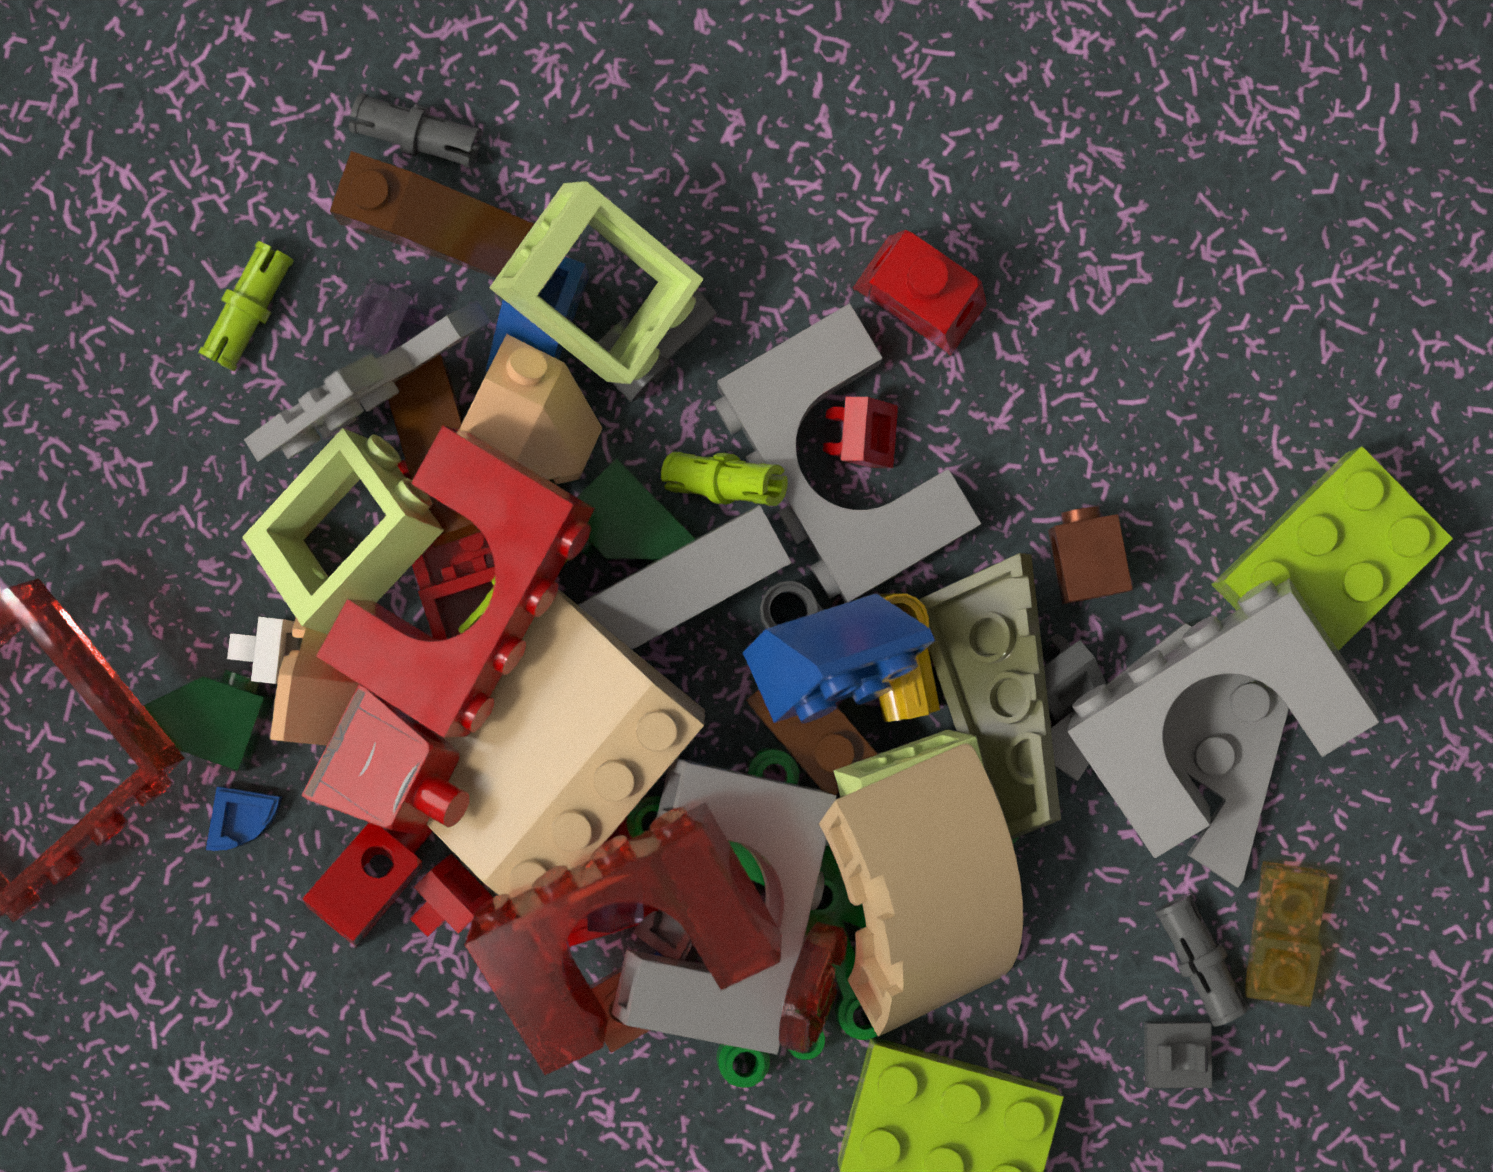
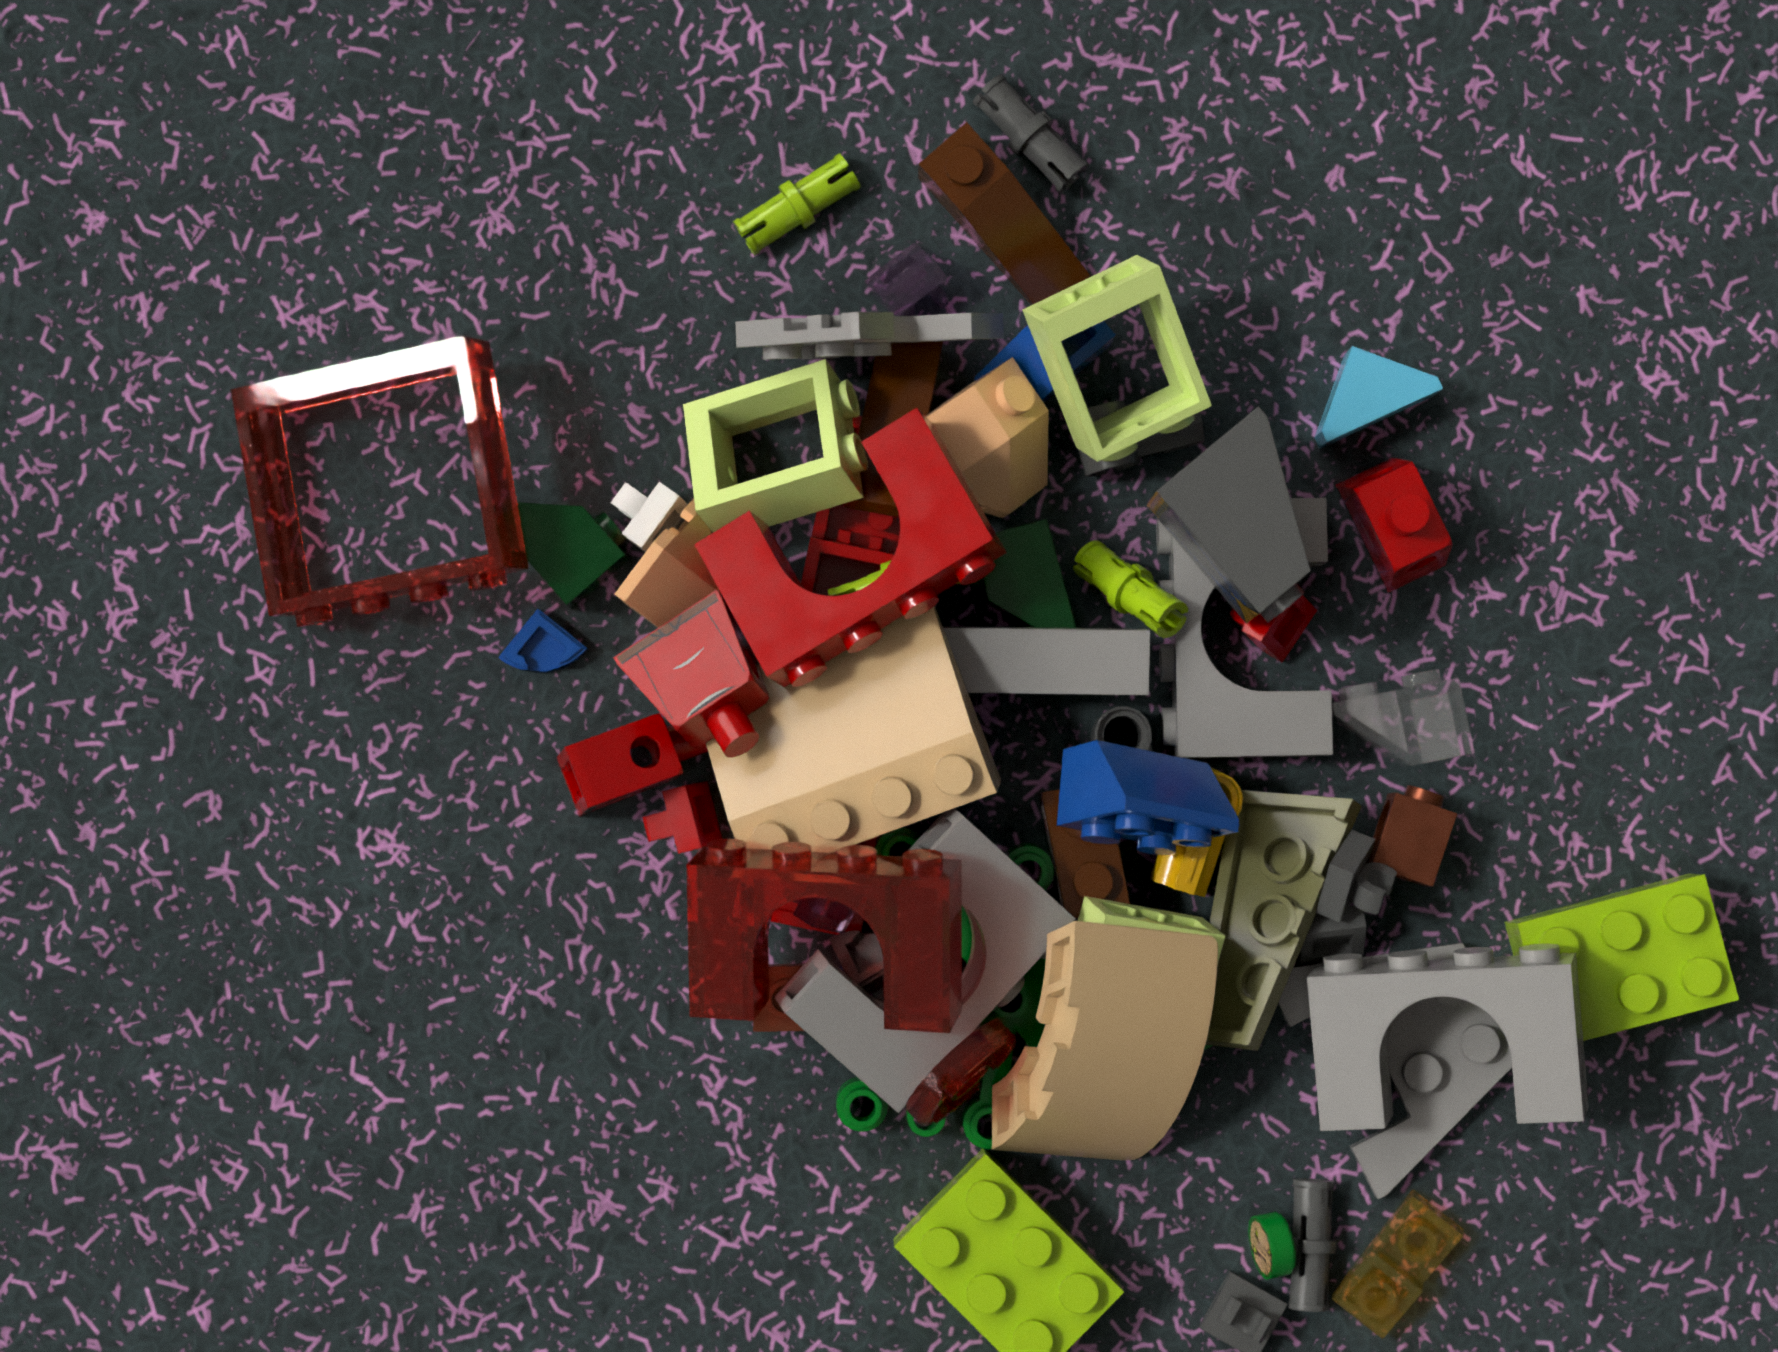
camera: 30 degrees right, 0 degrees up
(781, 365) = (1238, 520): none -> dark grey slope
(836, 190) = (1370, 391): none -> medium azure slope
(1033, 459) = (1408, 724): none -> clear slope
(1061, 622) = (1355, 879): none -> dark grey tile
(1168, 980) = (1272, 1245): none -> green tile

